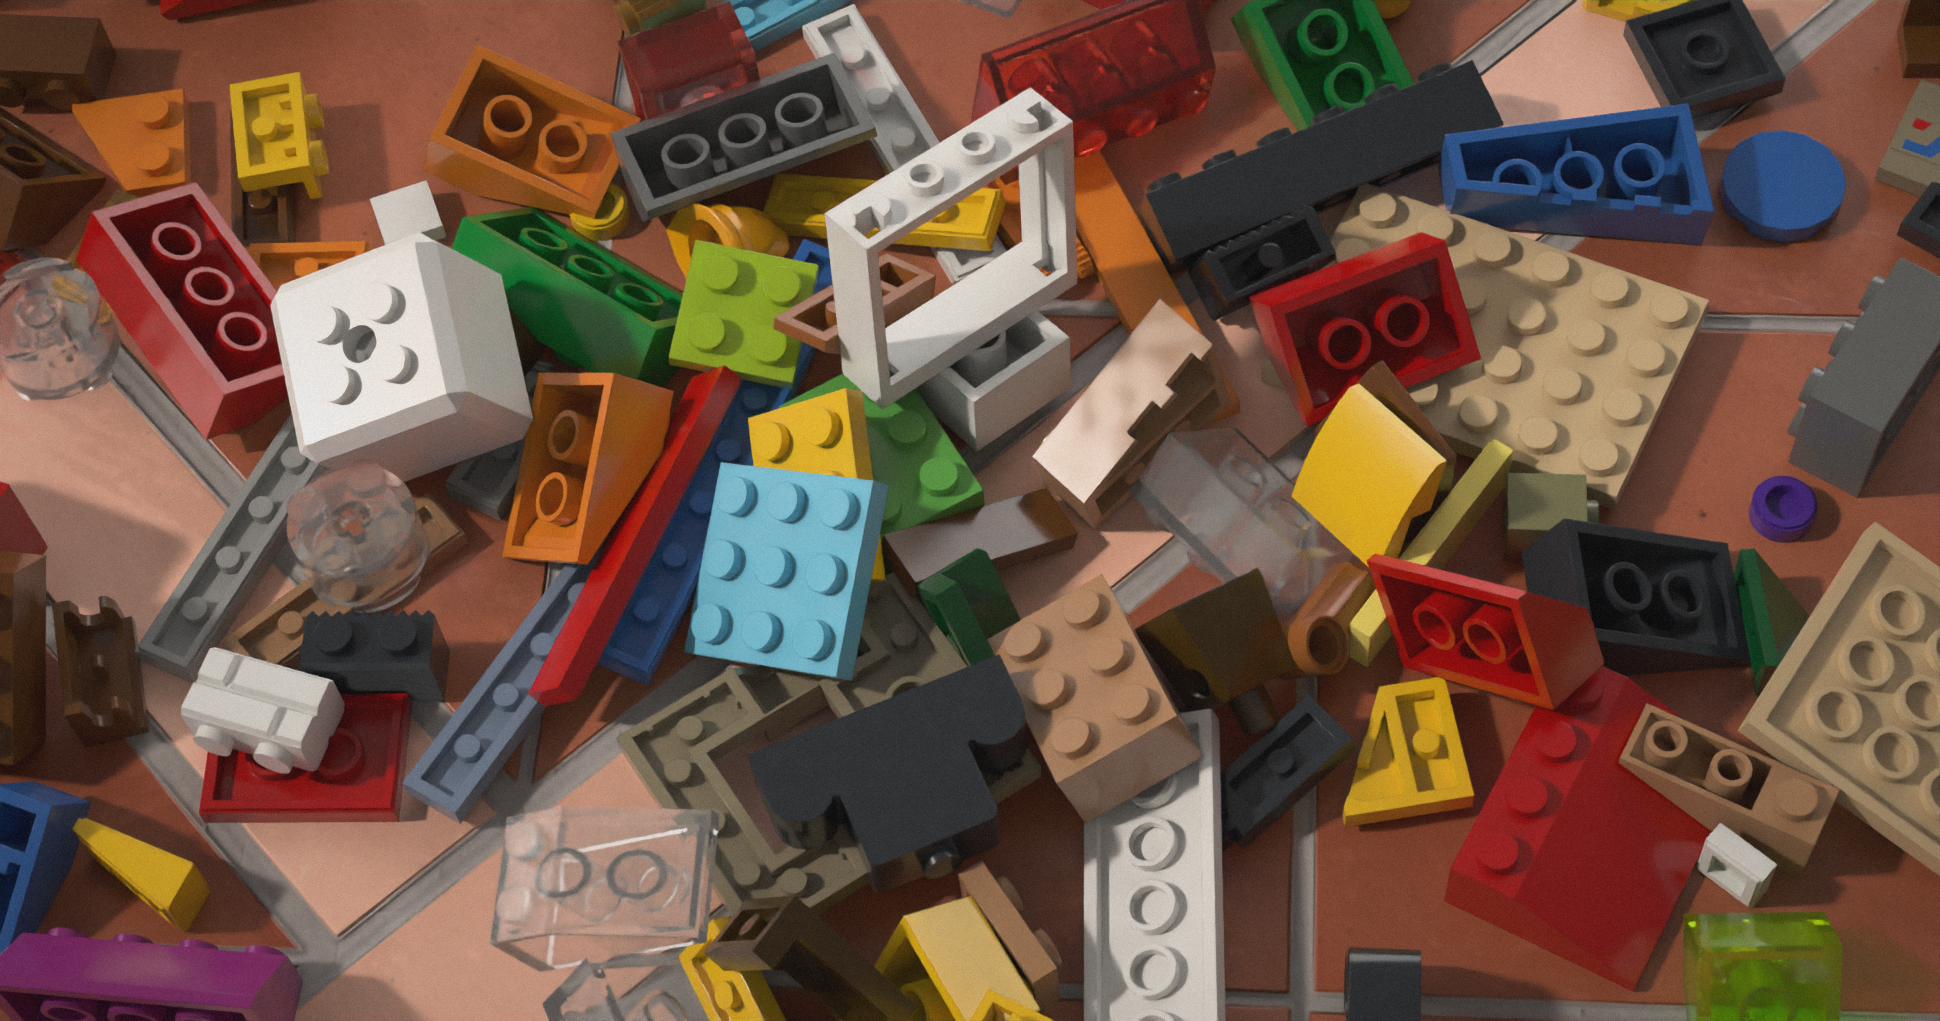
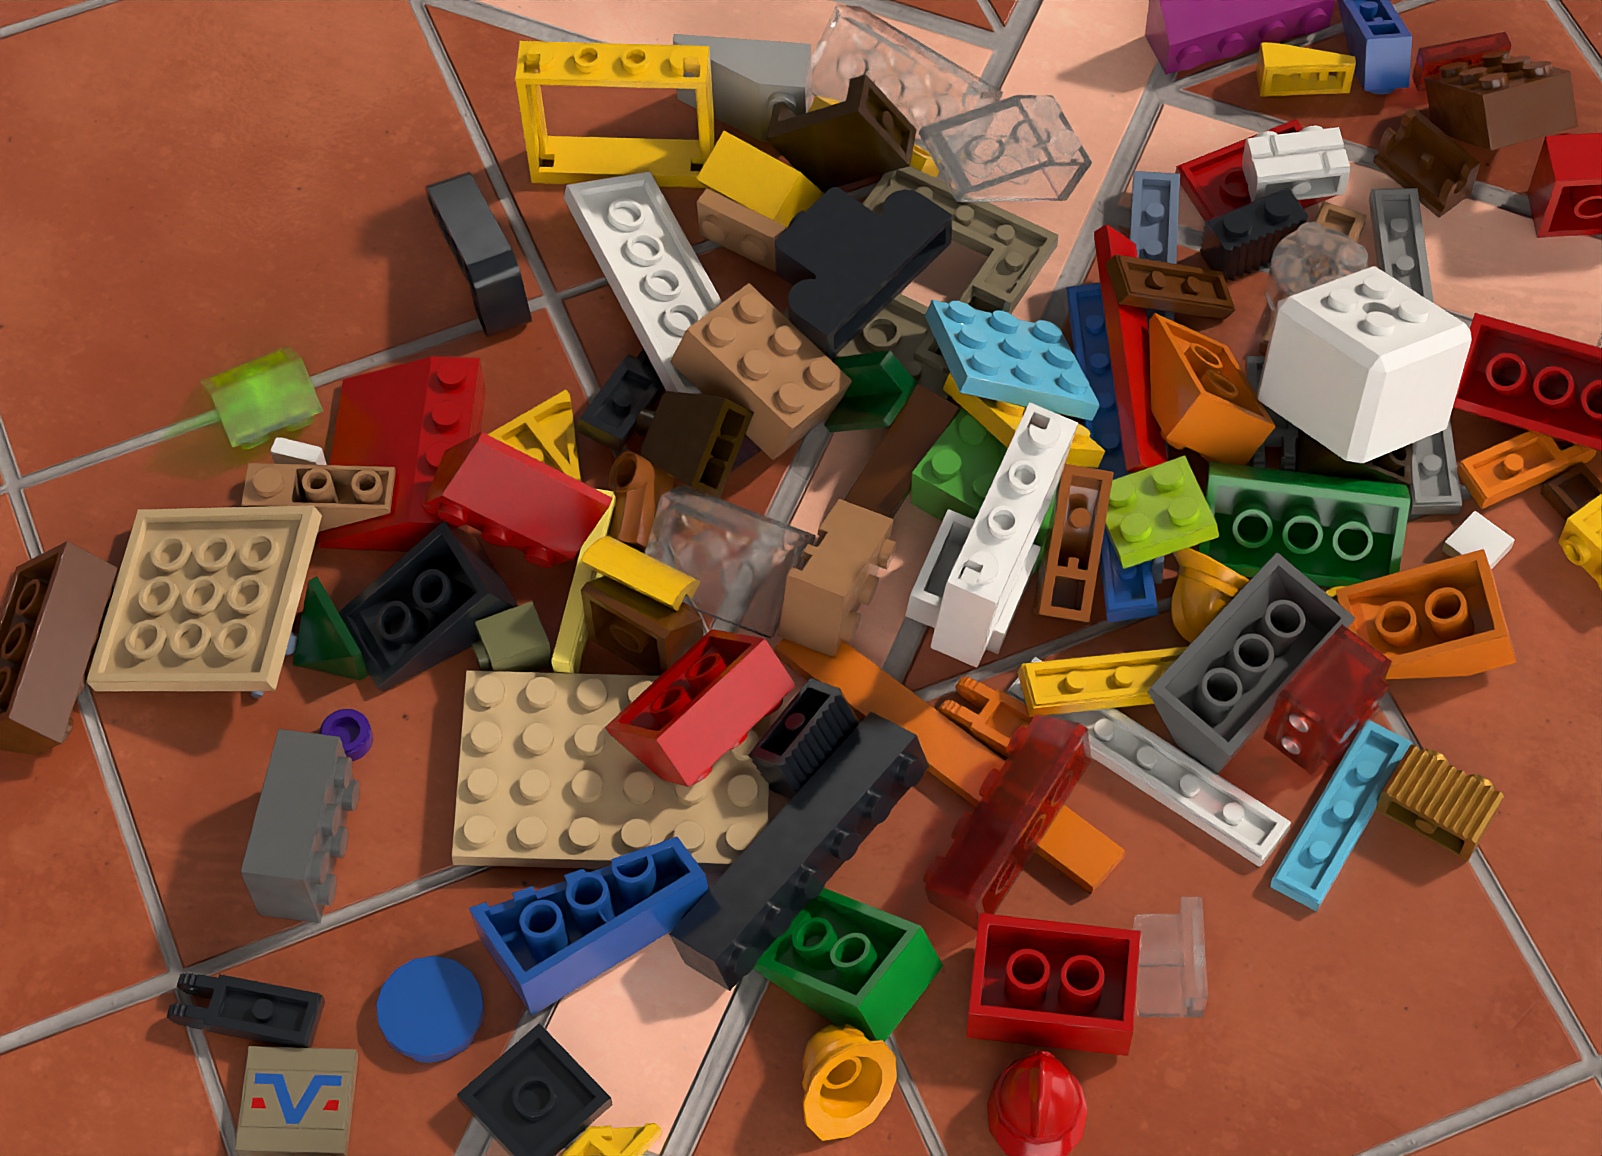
camera: 150 degrees right, 0 degrees up
(531, 606) = (1169, 287): none -> reddish brown tile

